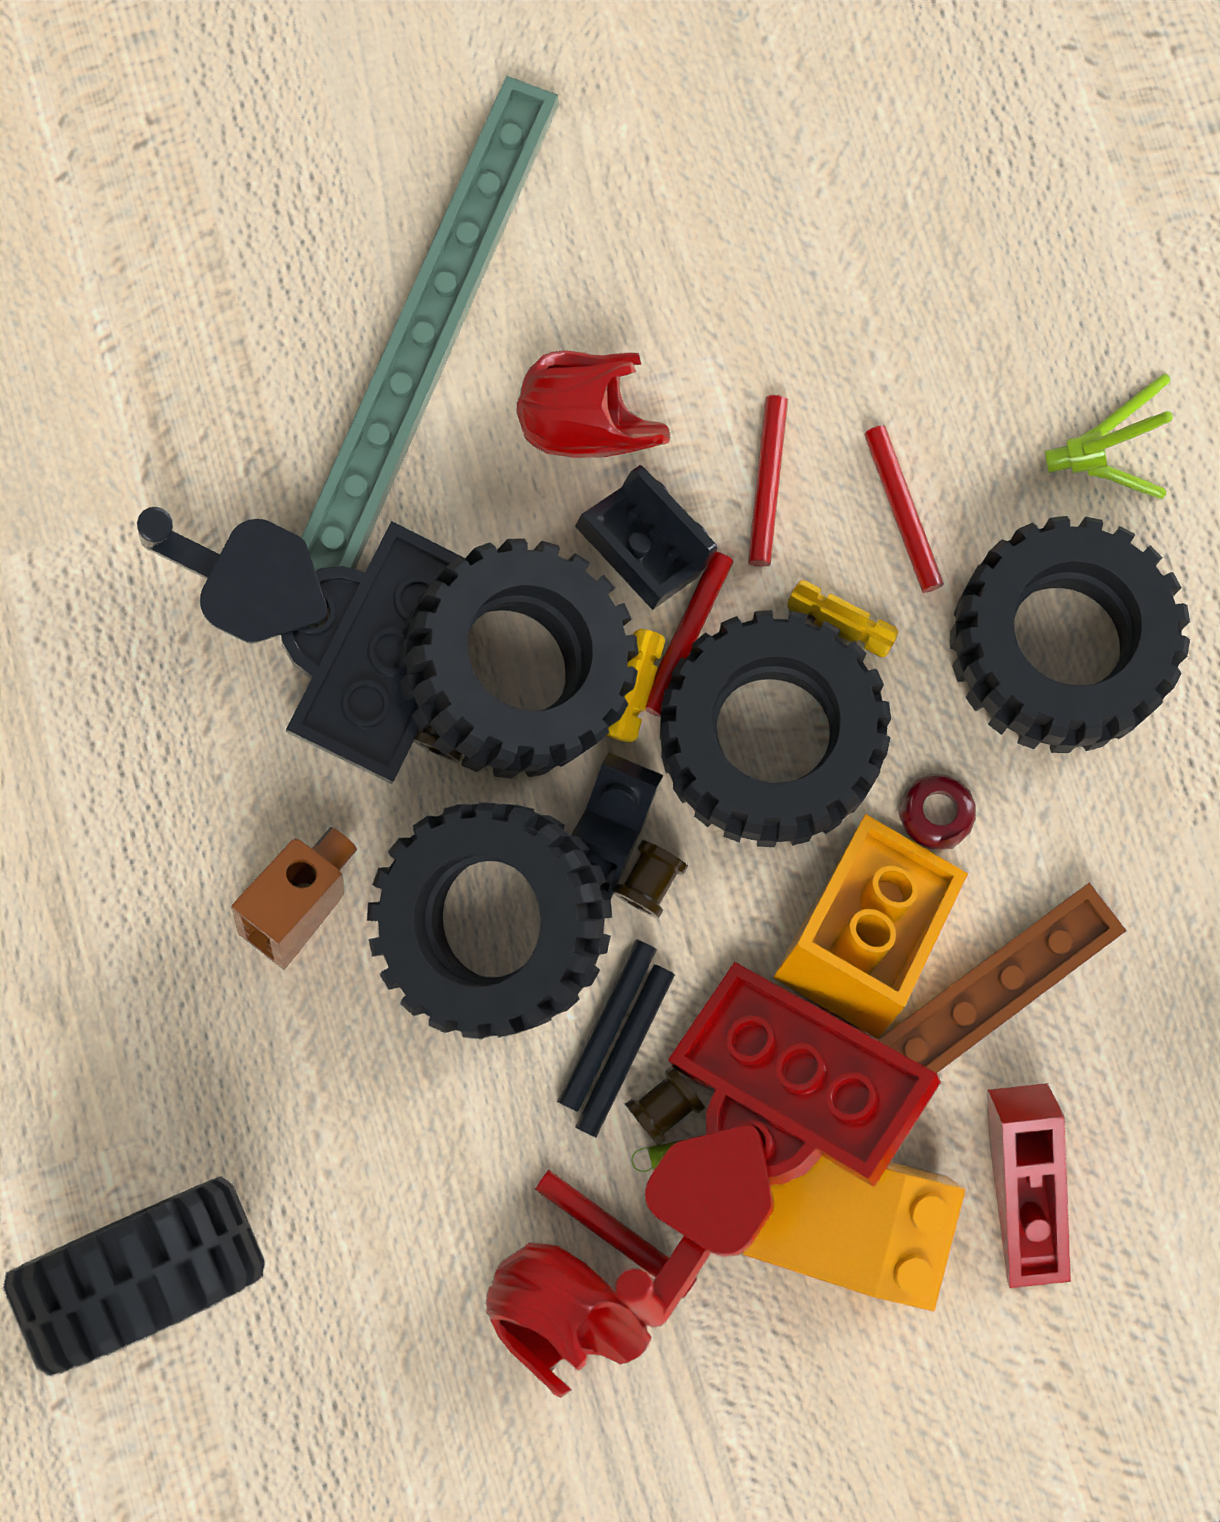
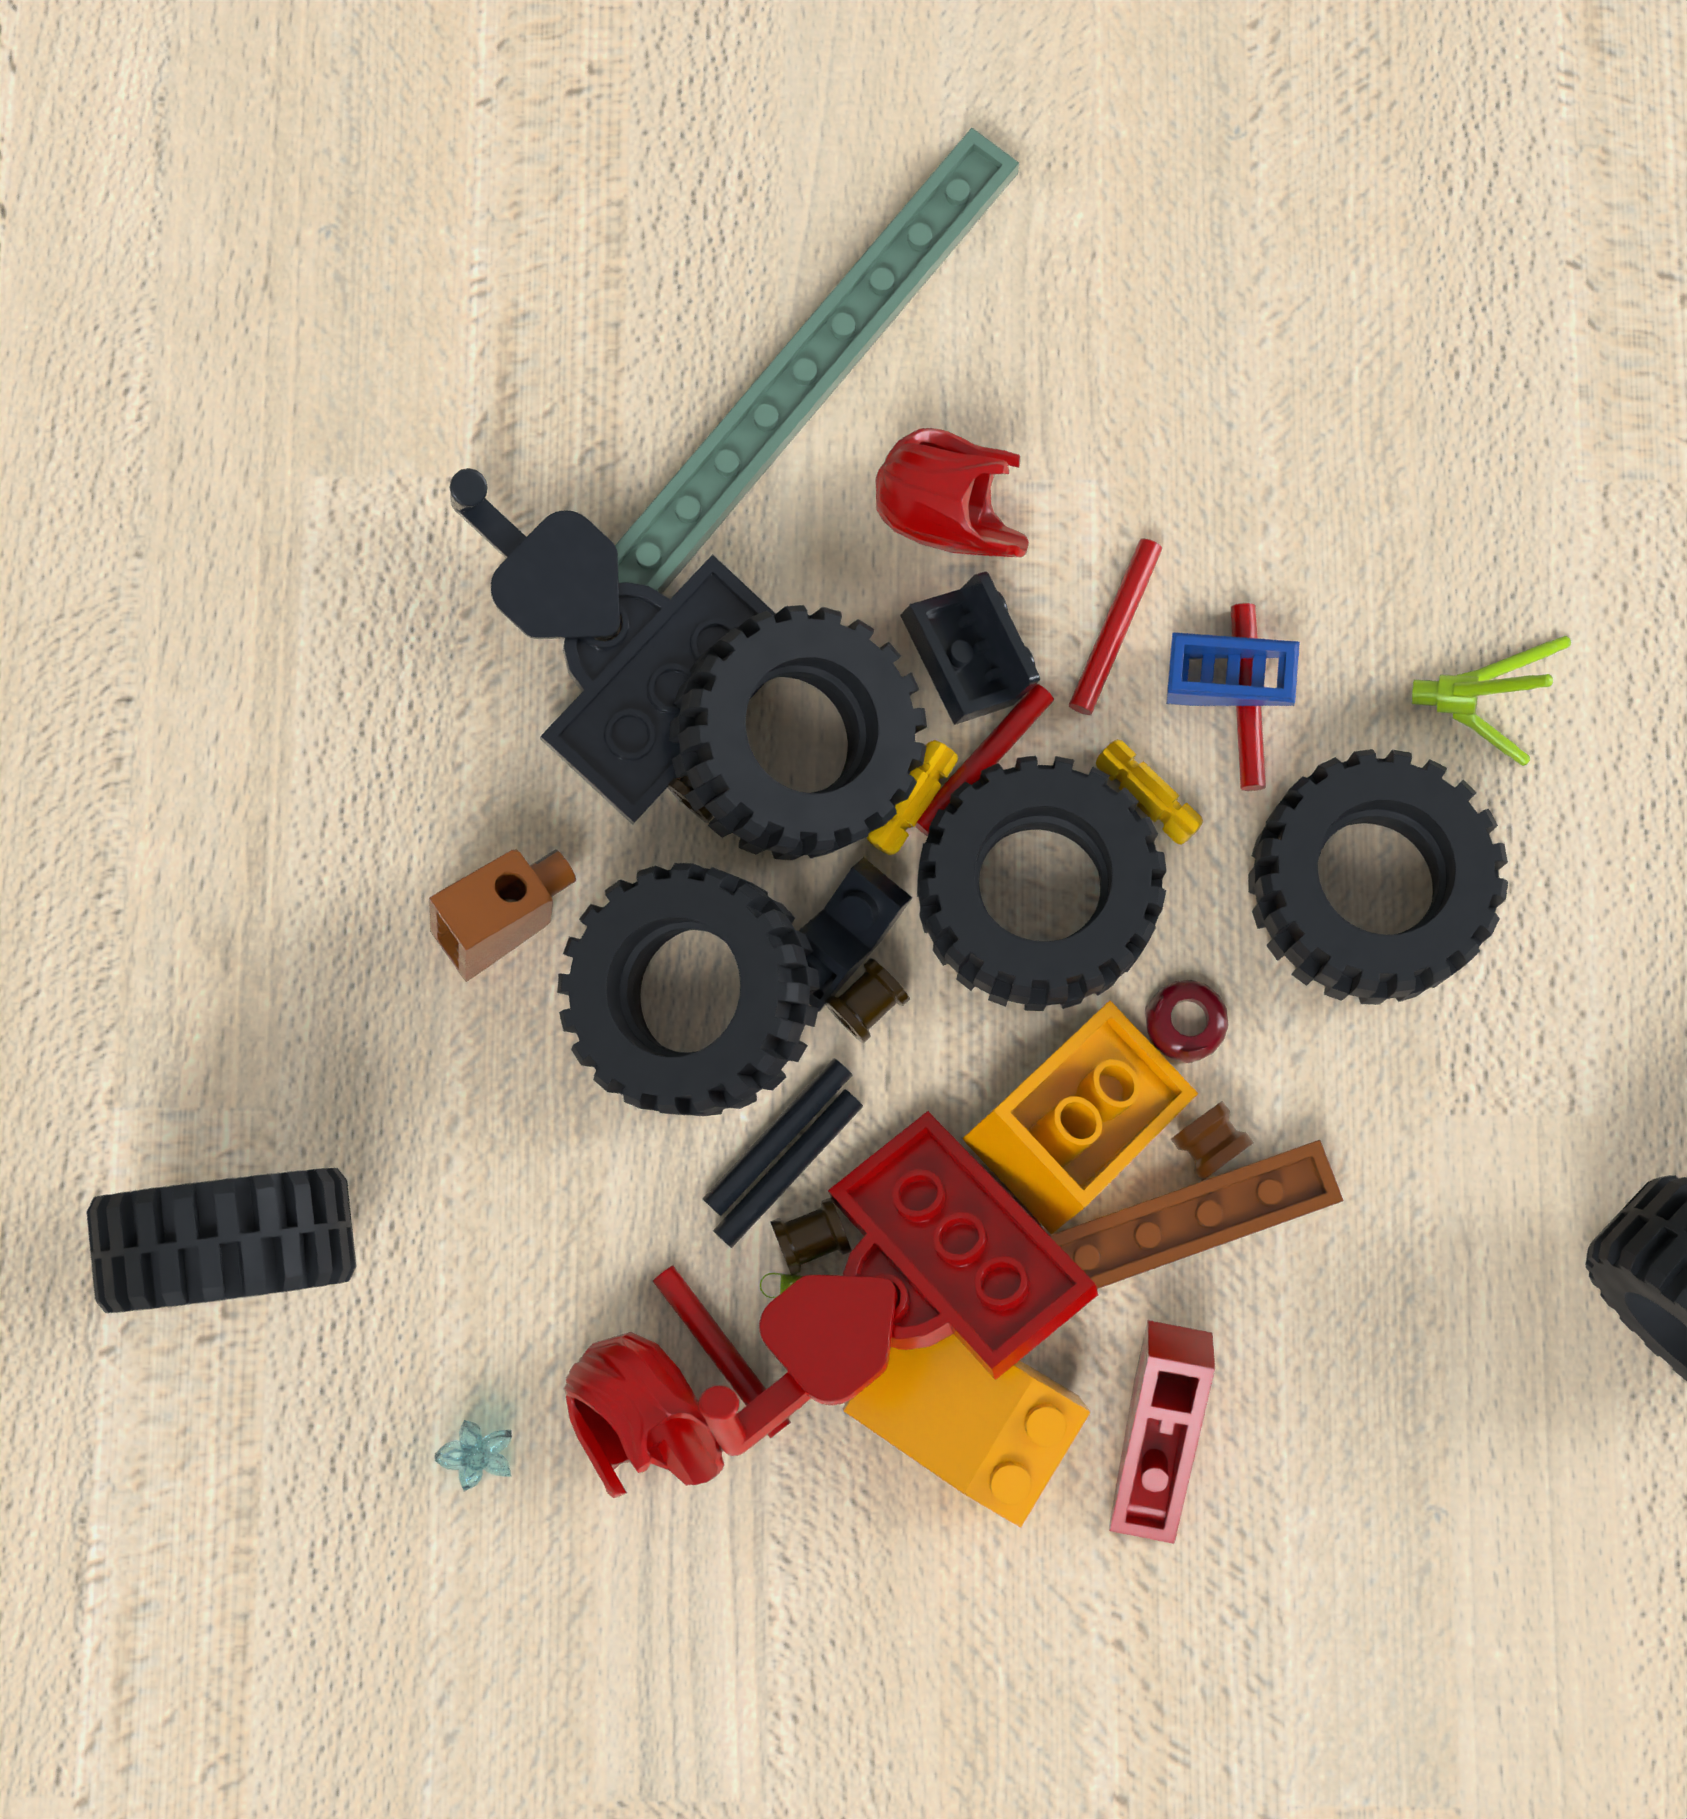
camera: 15 degrees right, 0 degrees up
(422, 1395) = (475, 1454): none -> clear light blue plant
(858, 474) = (1212, 647): none -> blue slope
(994, 912) = (1212, 1140): none -> reddish brown wheel

